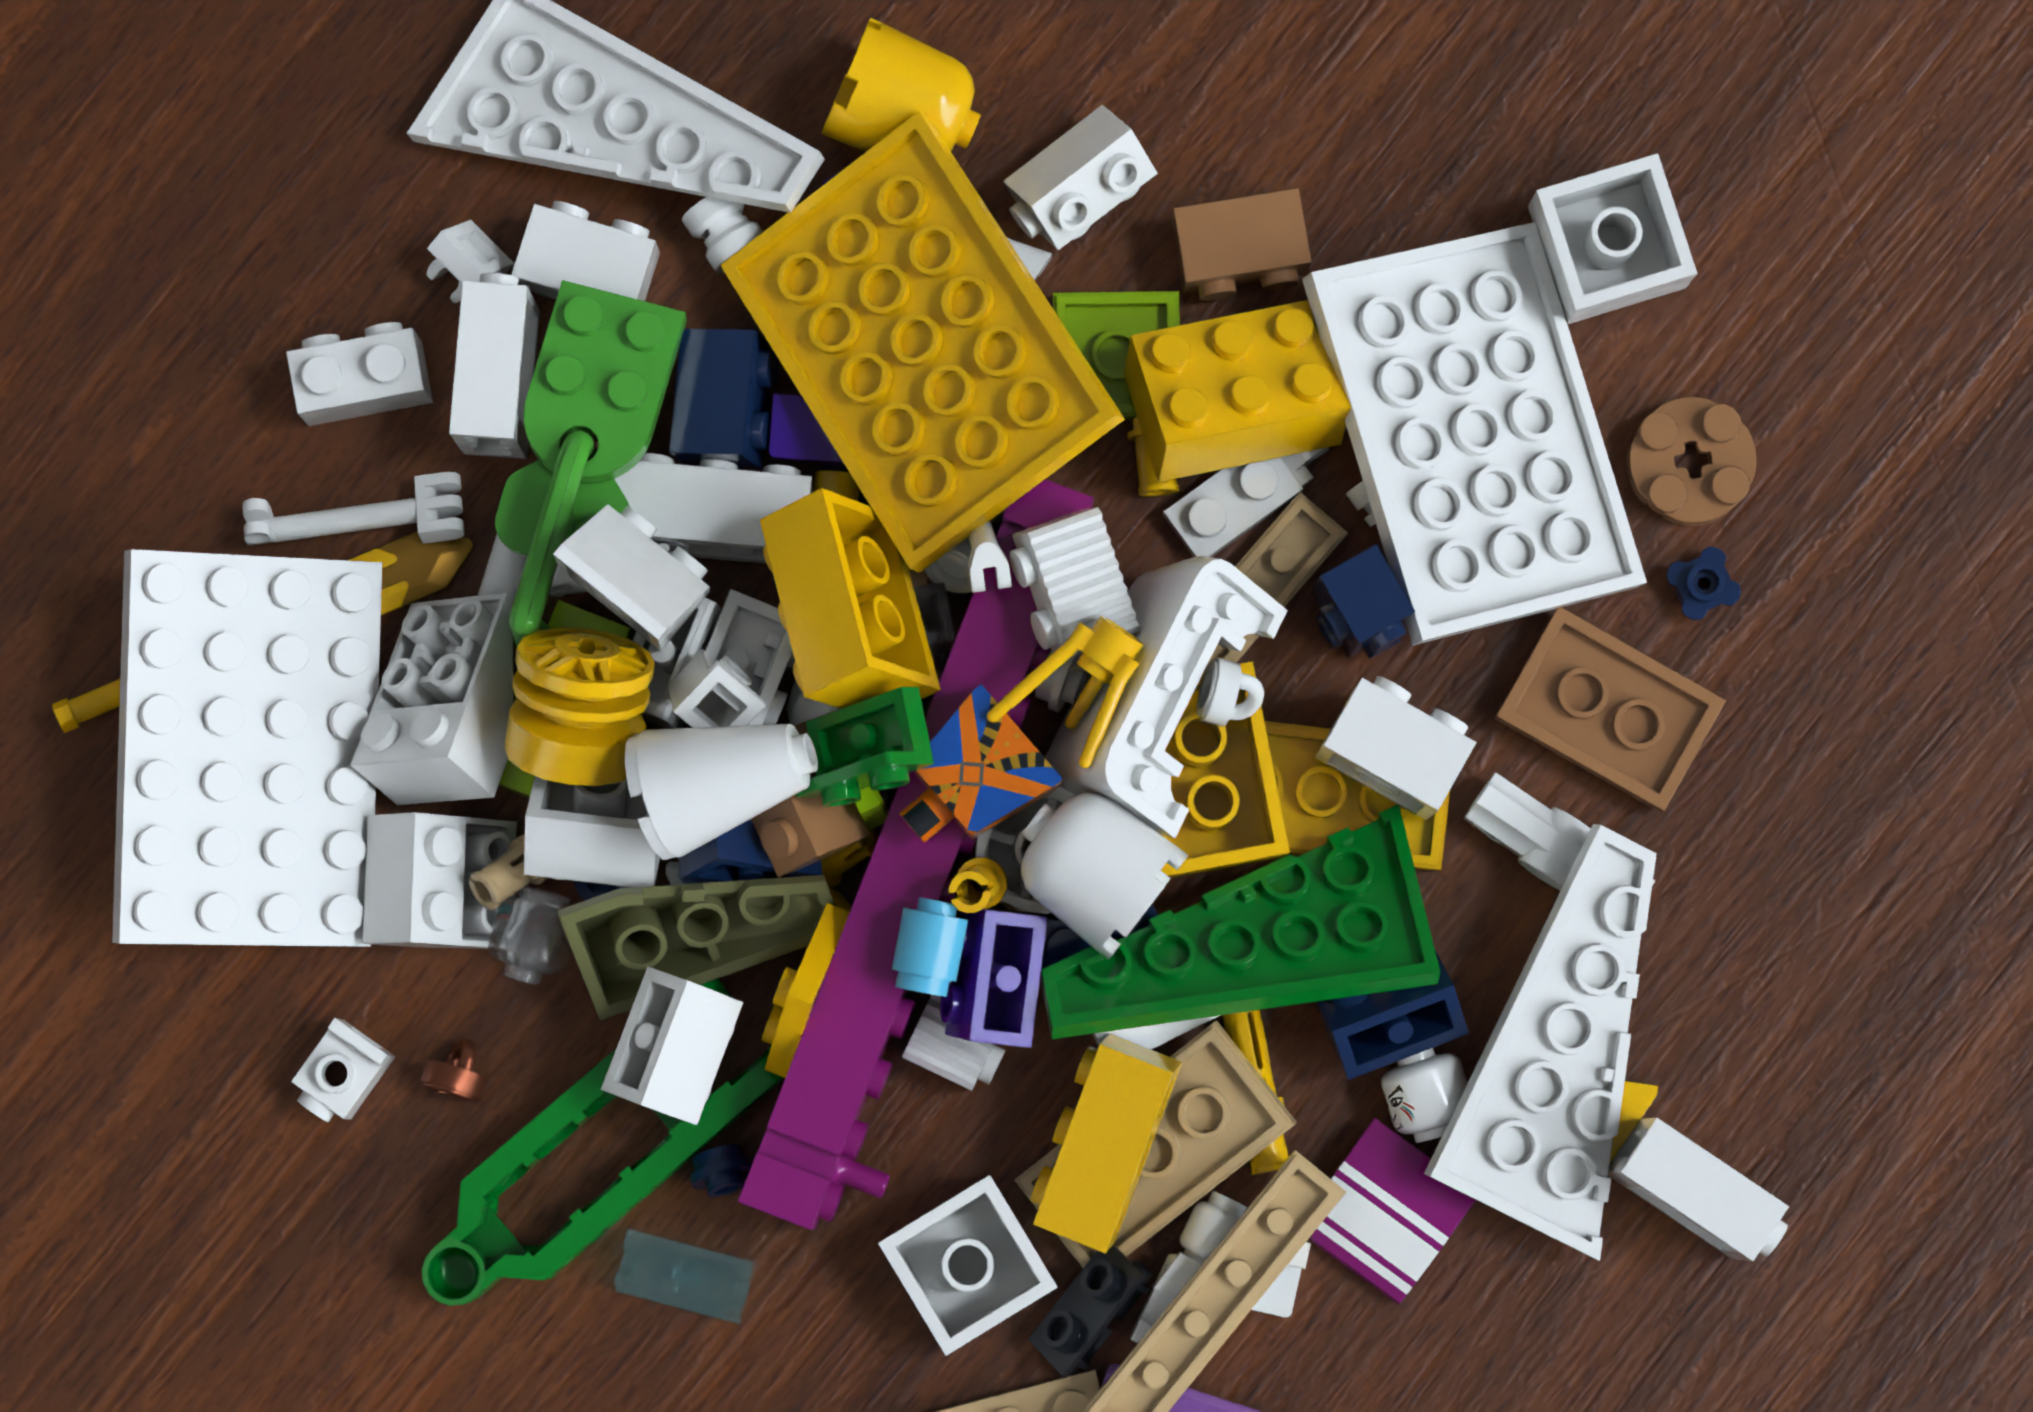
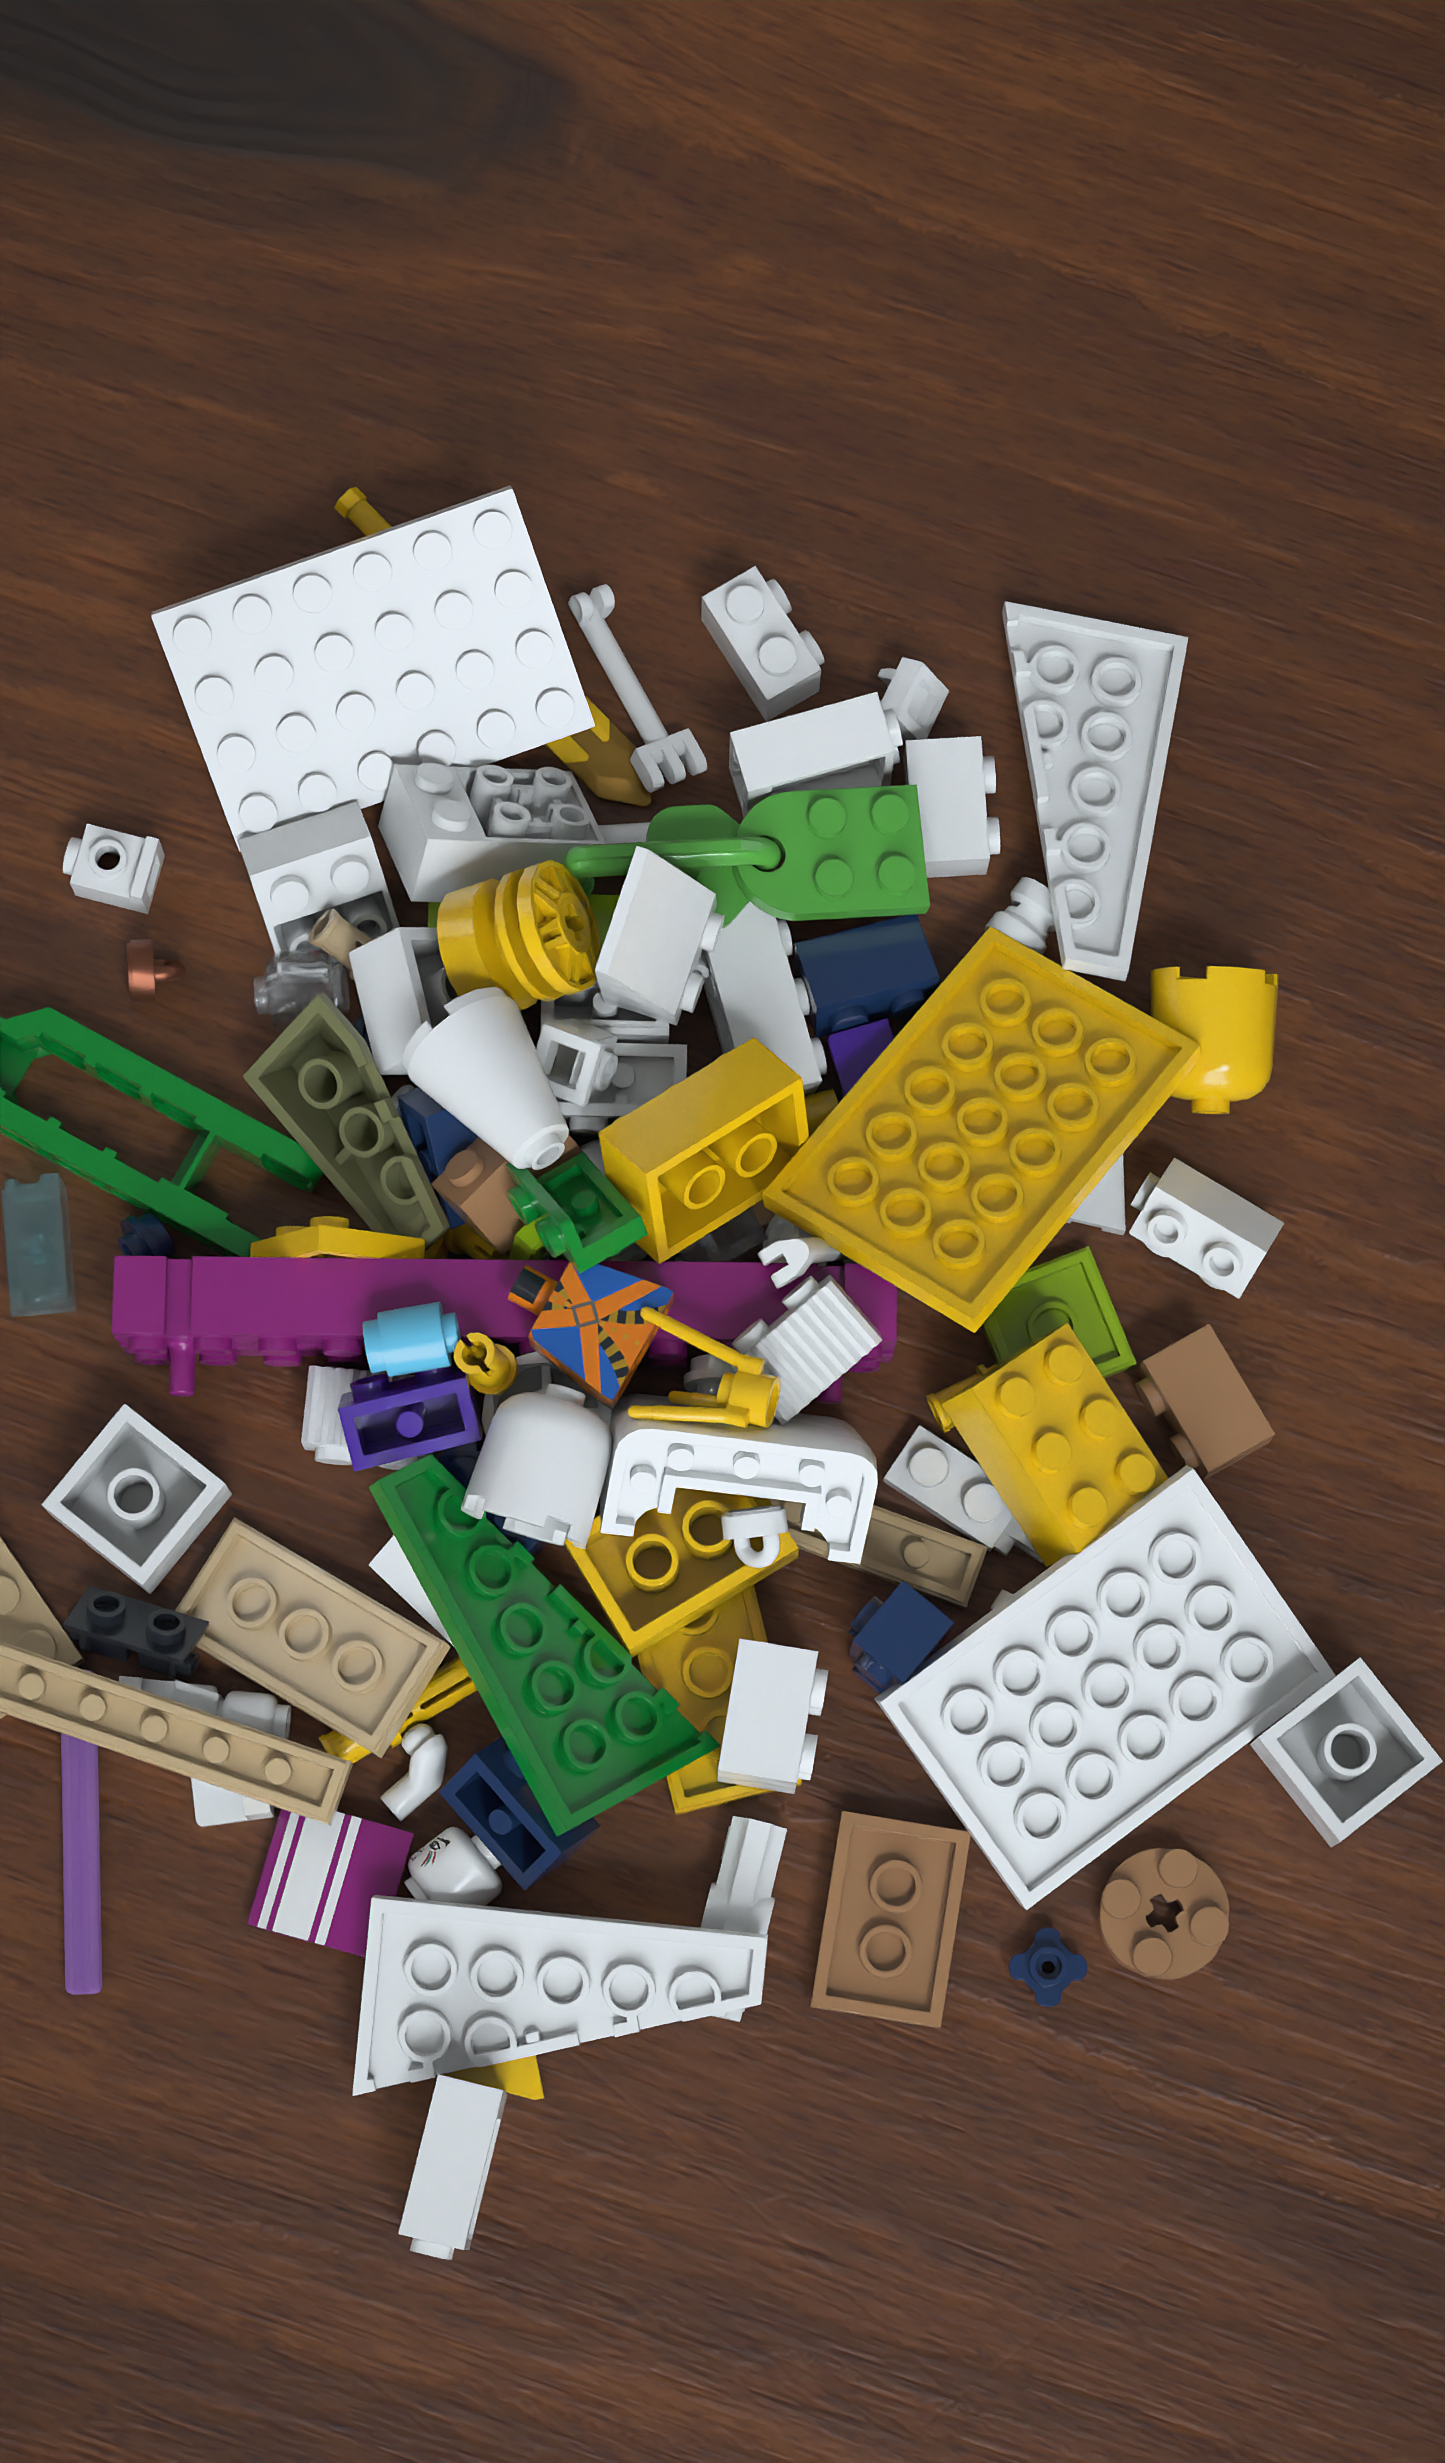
camera: 70 degrees right, 5 degrees down
(675, 1045) = (238, 1145): white brick -> none
(1104, 1142) = (294, 1580): yellow brick -> none
(1319, 1087) = (425, 1771): none -> white arm

